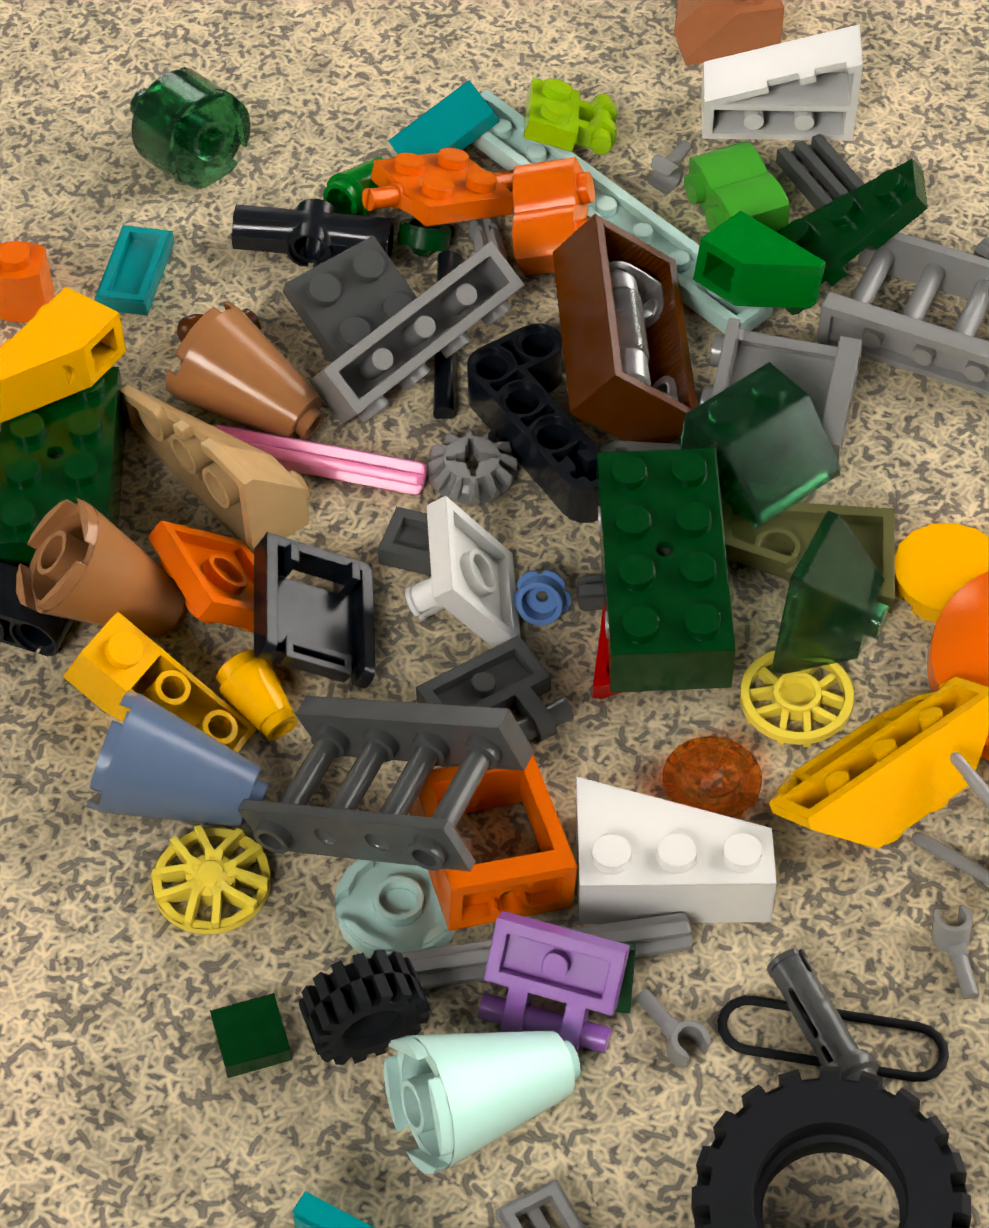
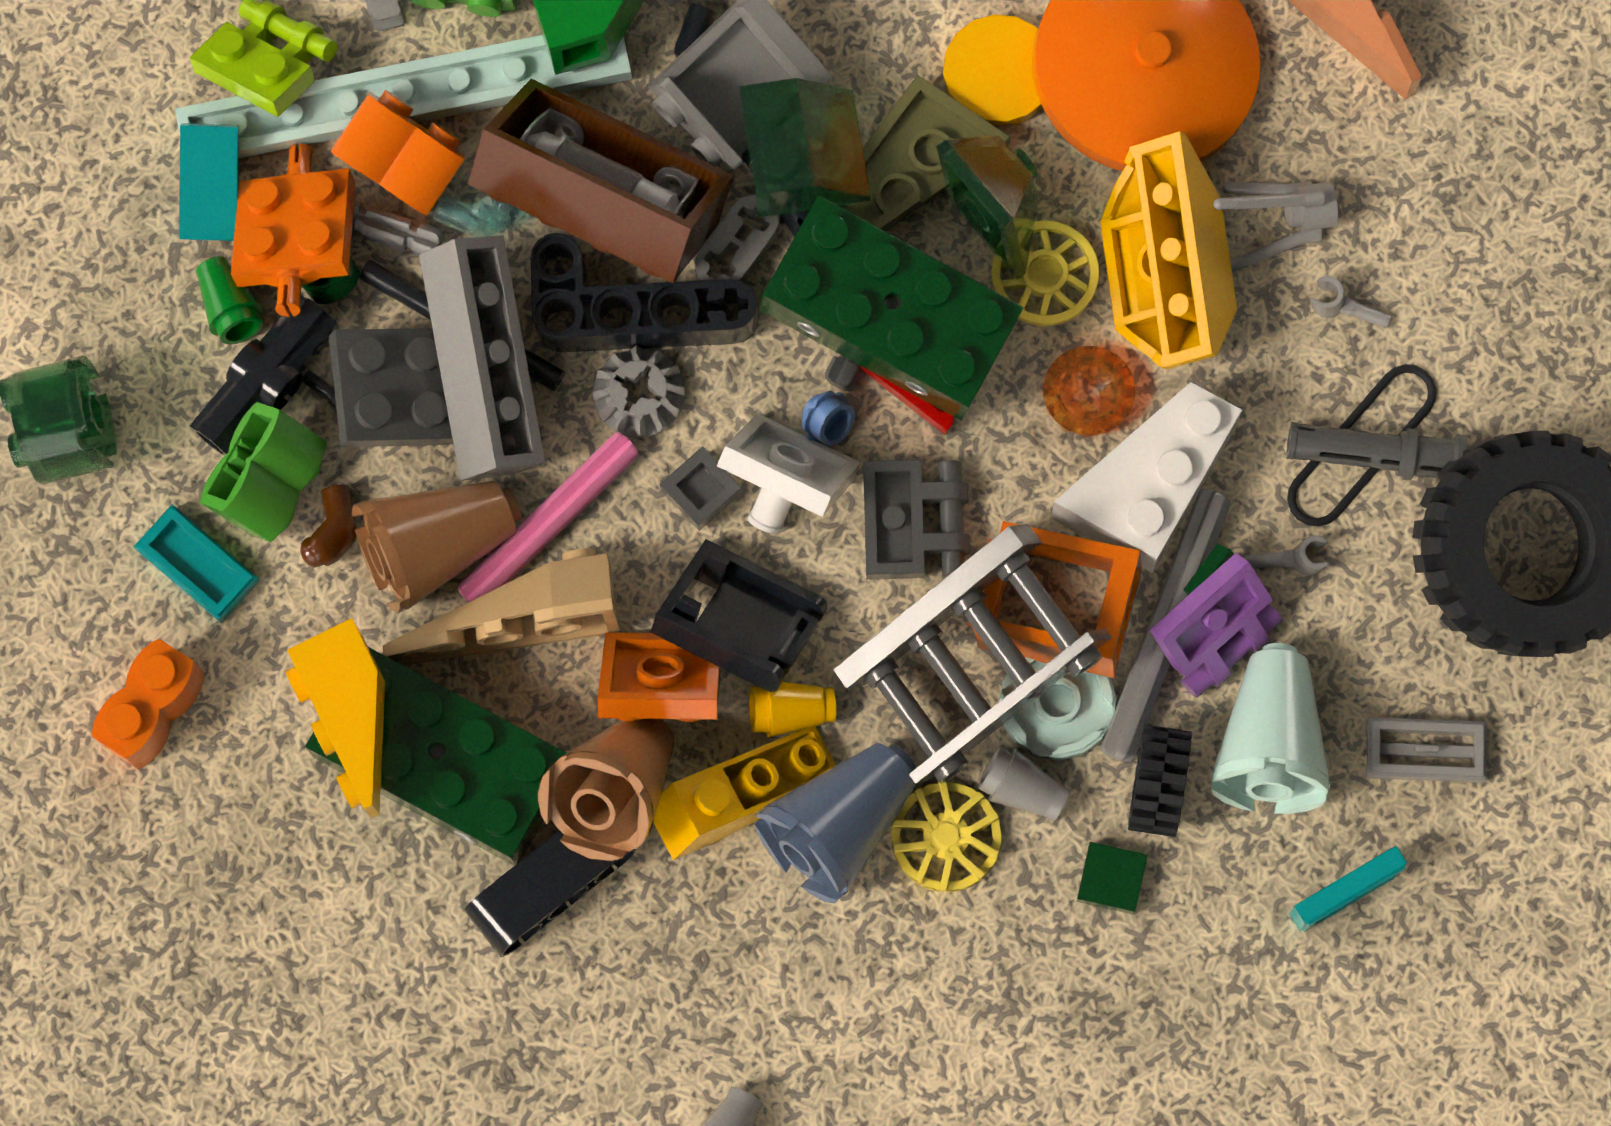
camera: 55 degrees left, 25 degrees up
(229, 259) = (264, 472): none -> bright green brick
(295, 905) = (1022, 785): none -> light grey cone
(538, 298) = (476, 220): none -> clear light blue arm

